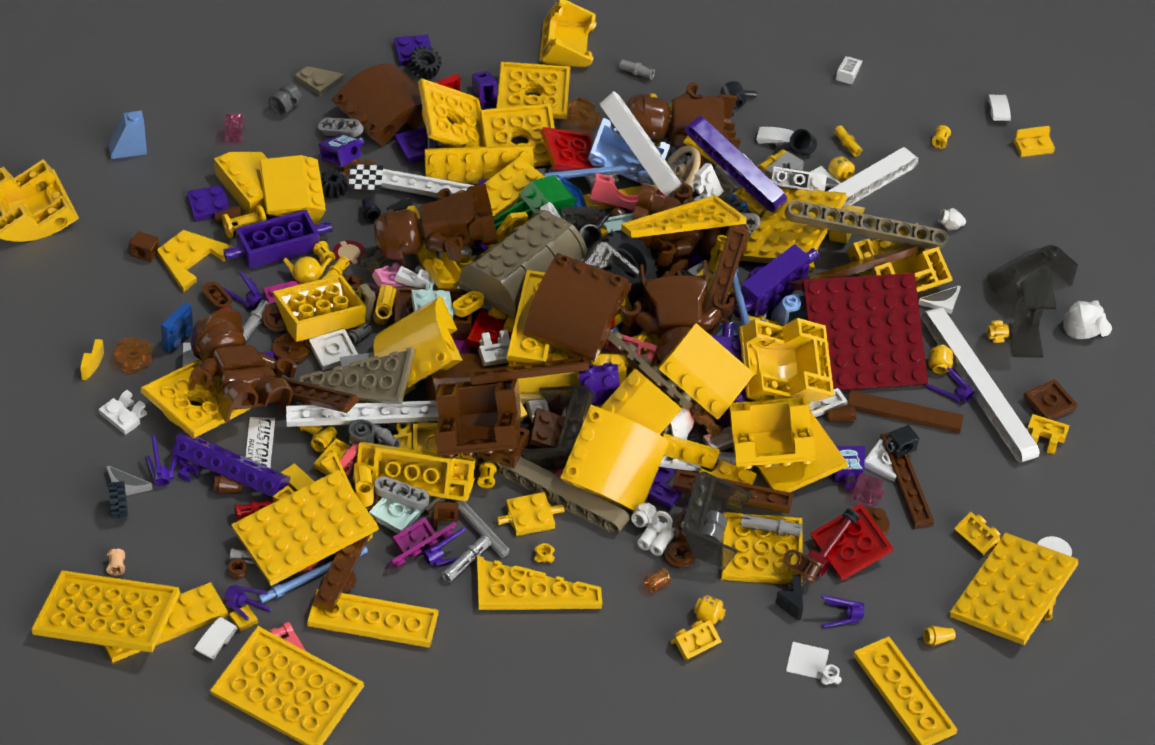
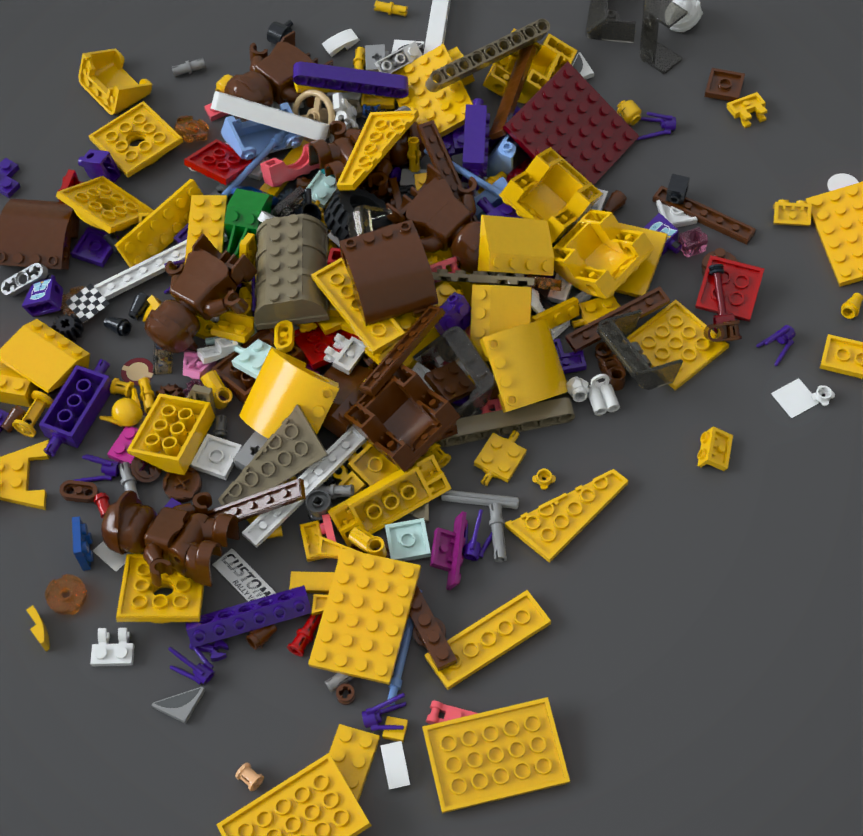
camera: 35 degrees left, 10 degrees up
(118, 499) = (196, 725): black wheel -> none
(323, 439) = (290, 533): yellow cone -> none
(408, 499) = (415, 523): light grey beam -> none
(422, 69) = (32, 173): black tyre -> none
(444, 512) = (442, 510): reddish brown bracket -> none
(504, 124) = (161, 164): yellow piece -> none
(657, 580) = (641, 428): clear orange bush -> none
(682, 548) = (625, 392): reddish brown gear -> none
(709, 609) = (699, 419): yellow head -> none
(778, 526) = (675, 317): light grey pin -> none
(792, 599) = (741, 362): black slope -> none
(800, 141) = (365, 32): black piece -> none
(841, 168) = (411, 30): yellow head -> none
(906, 411) = (648, 167): reddish brown tile -> none
(951, 219) = (520, 10): white rock -> none
(986, 392) = (685, 112): white beam -> none
(997, 331) = (640, 64): yellow gear -> none

